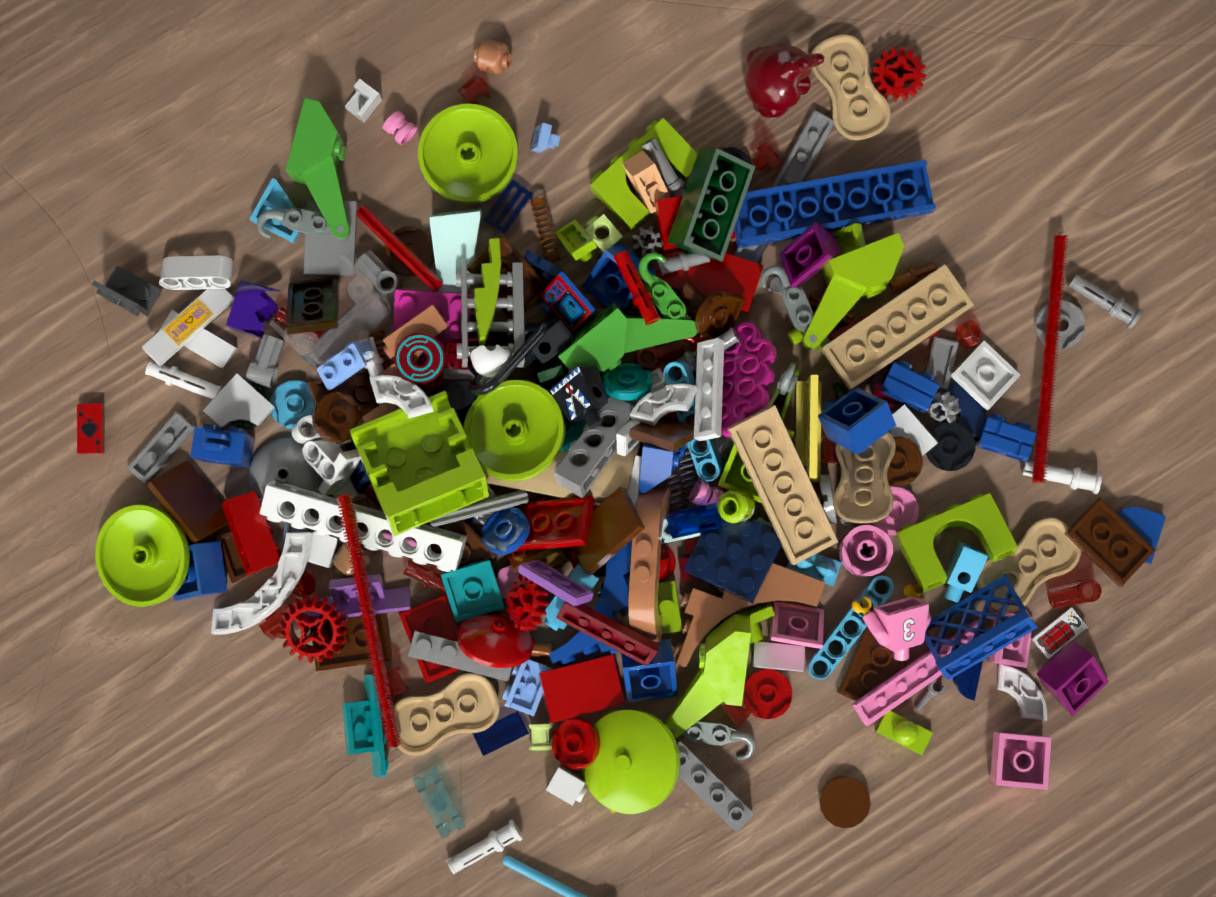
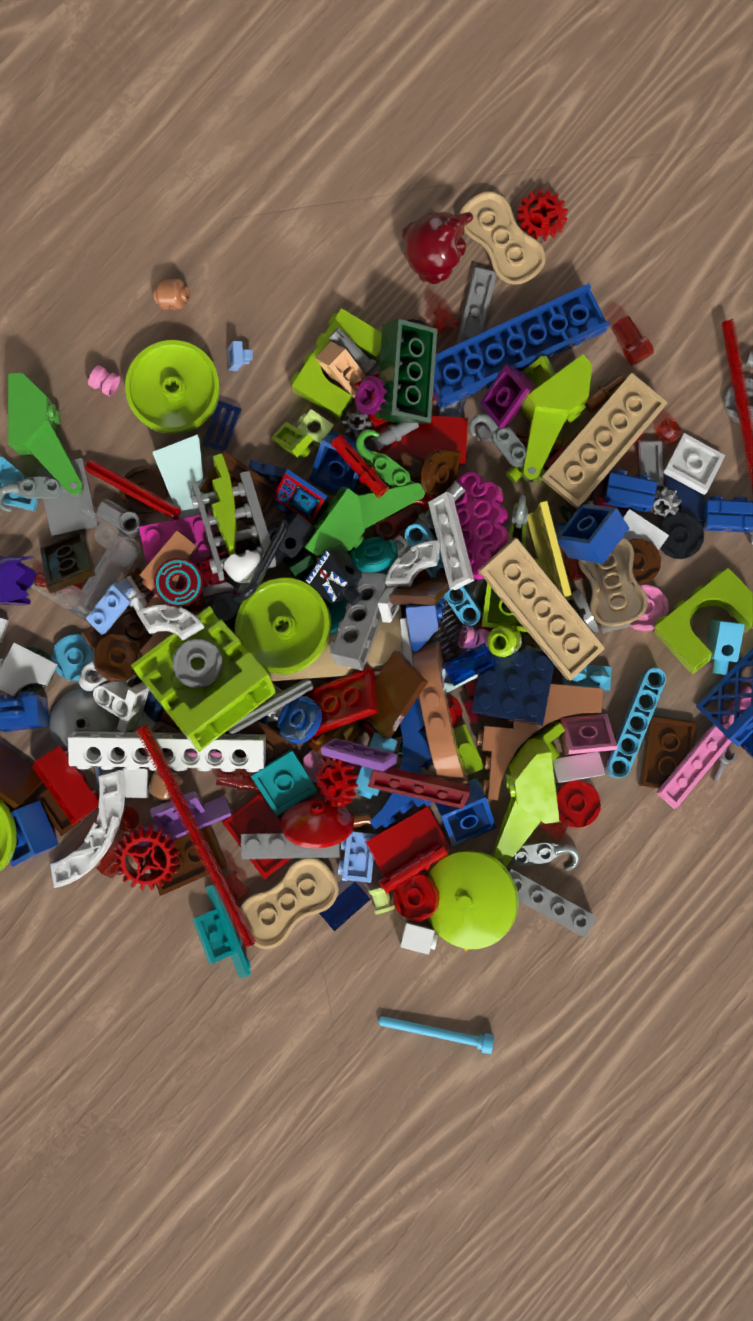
camera: 20 degrees left, 0 degrees up
(264, 367) = (37, 631): light grey piece -> none
(363, 101) = (65, 365): white panel -> none
(416, 461) = (197, 678): none -> light grey tile
(439, 803) = (305, 985): clear light blue plate -> none
(472, 88) = (161, 326): clear red tile -> none
(494, 842) = (366, 1007): white pin -> none
(536, 203) = (250, 414): dark orange piece -> none
(591, 709) = (421, 862): none -> red pin
(661, 216) = (363, 395): none -> magenta gear
(844, 802) = (673, 882): reddish brown tile -> none
(871, 537) = (643, 655): bright pink brick -> none
(898, 623) = (679, 707): bright pink torso -> none
(904, 732) = (710, 805): lime tile -> none
(958, 236) = (634, 345): none -> clear red piece

